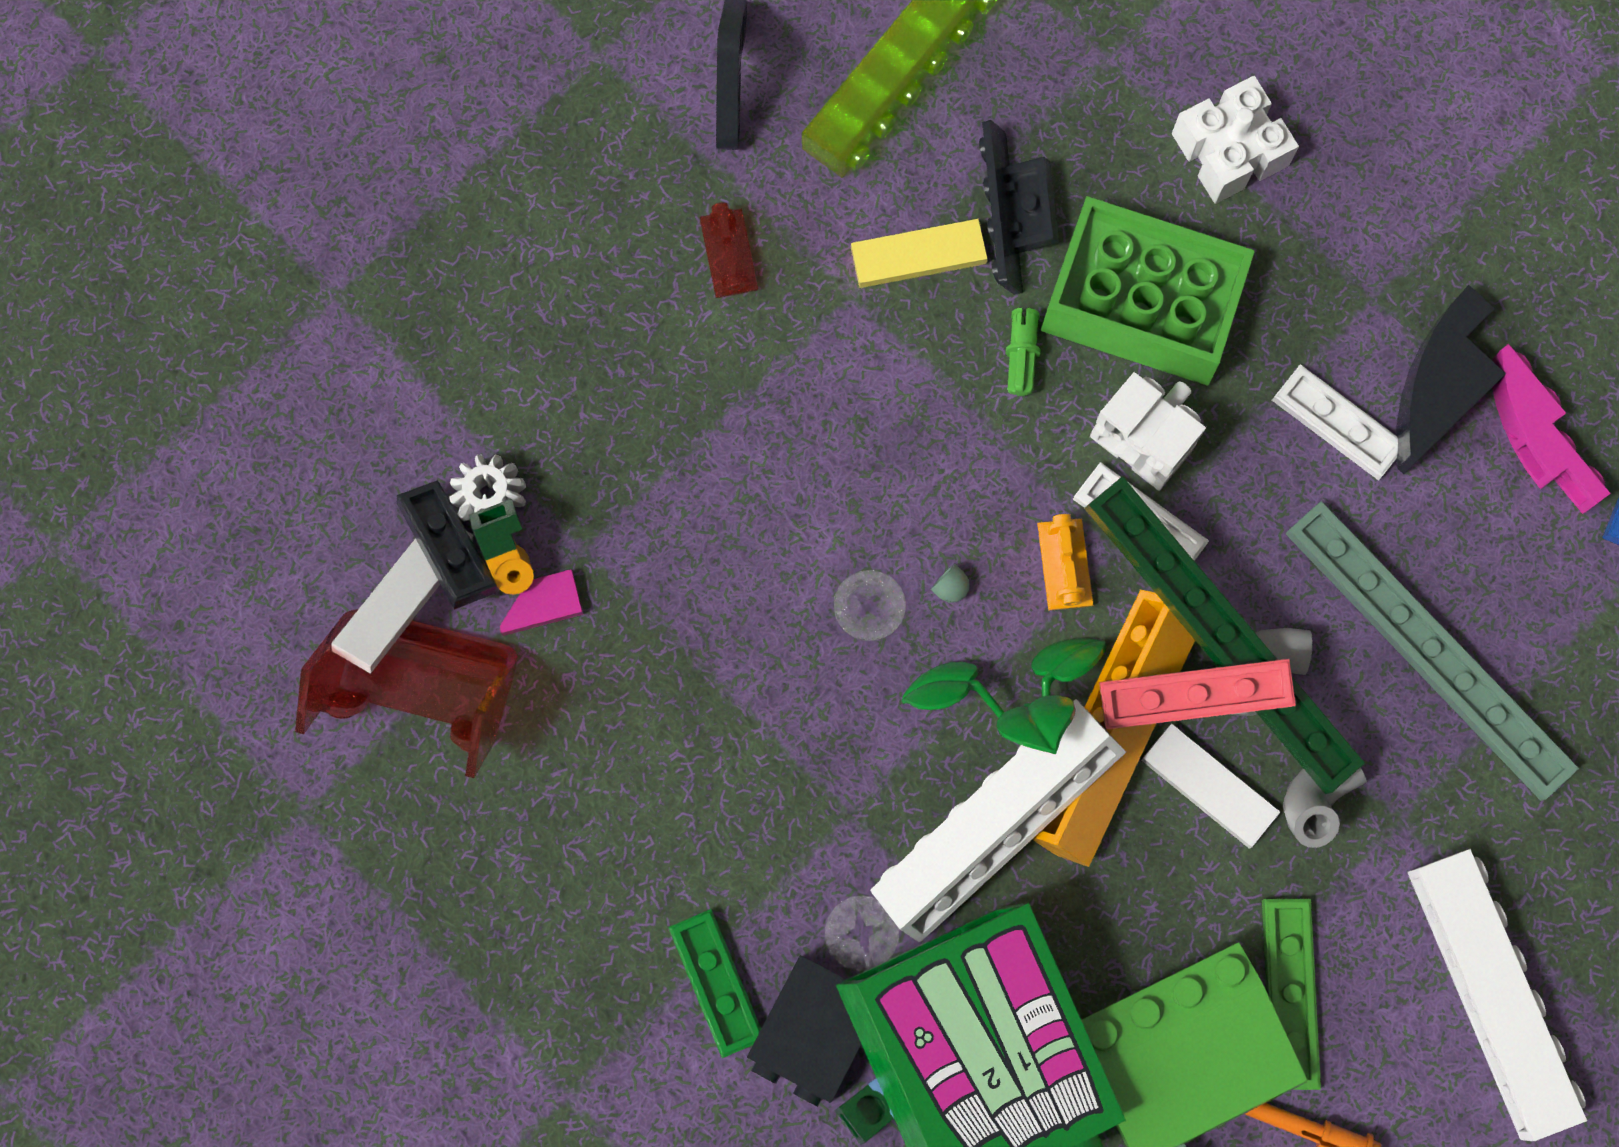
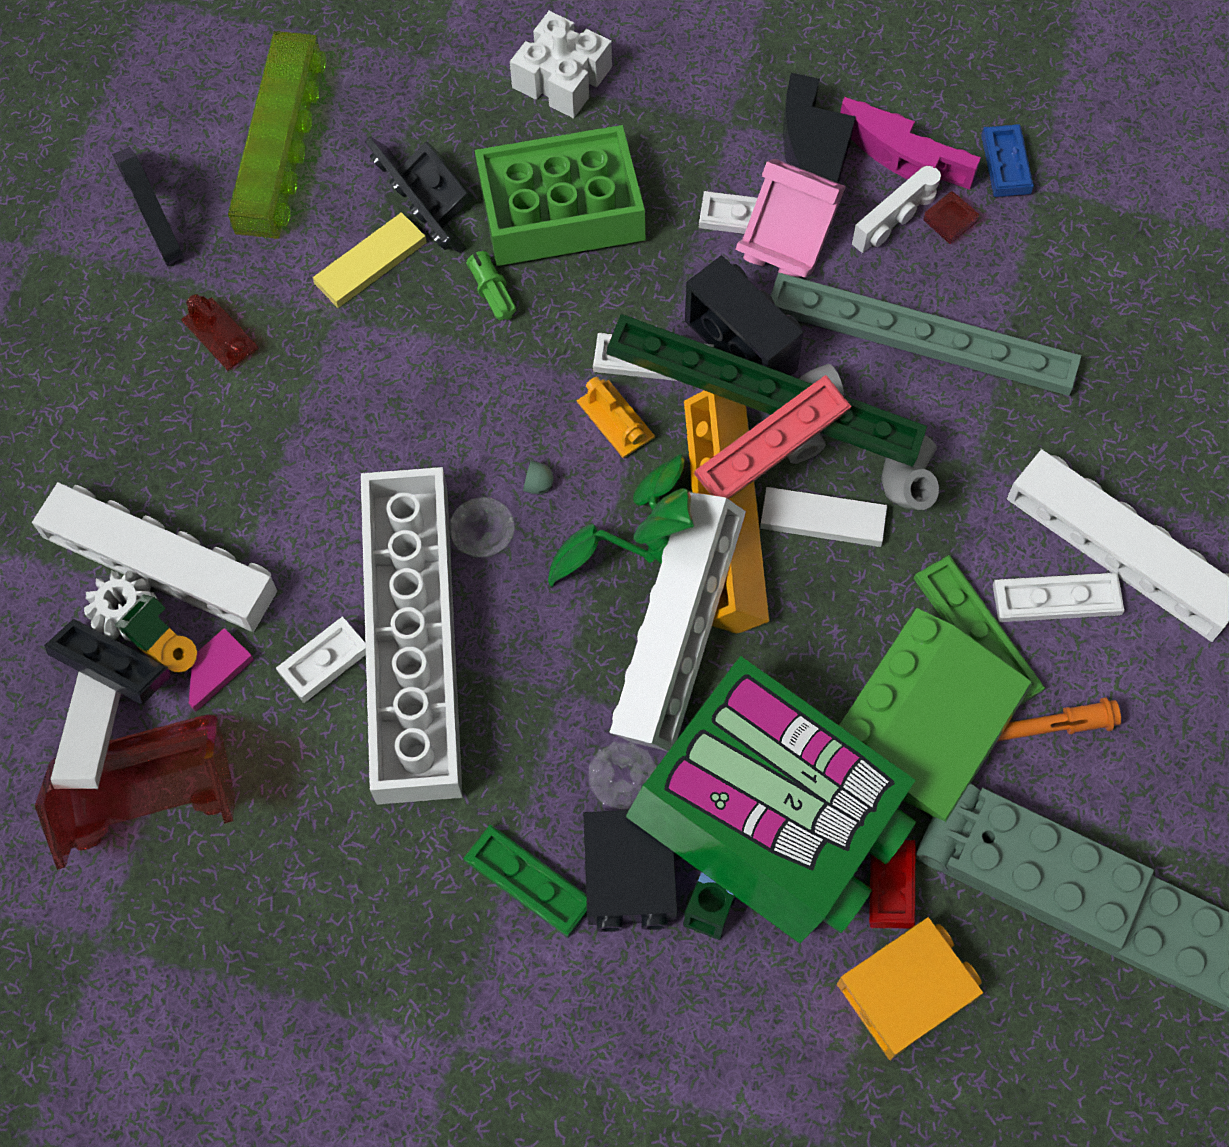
camera: 30 degrees left, 10 degrees down
(545, 460) = (164, 559): none -> white brick
(645, 655) = (322, 659): none -> white plate
(738, 679) = (410, 637): none -> white brick
(1149, 430) = (619, 283): white brick -> none
(1248, 541) = (740, 318): none -> black brick
(1365, 453) = (790, 219): none -> bright pink panel
(1394, 1005) = (1058, 597): none -> white tile
(1489, 497) = (896, 208): none -> white plate
(1540, 537) = (951, 217): none -> clear red plate

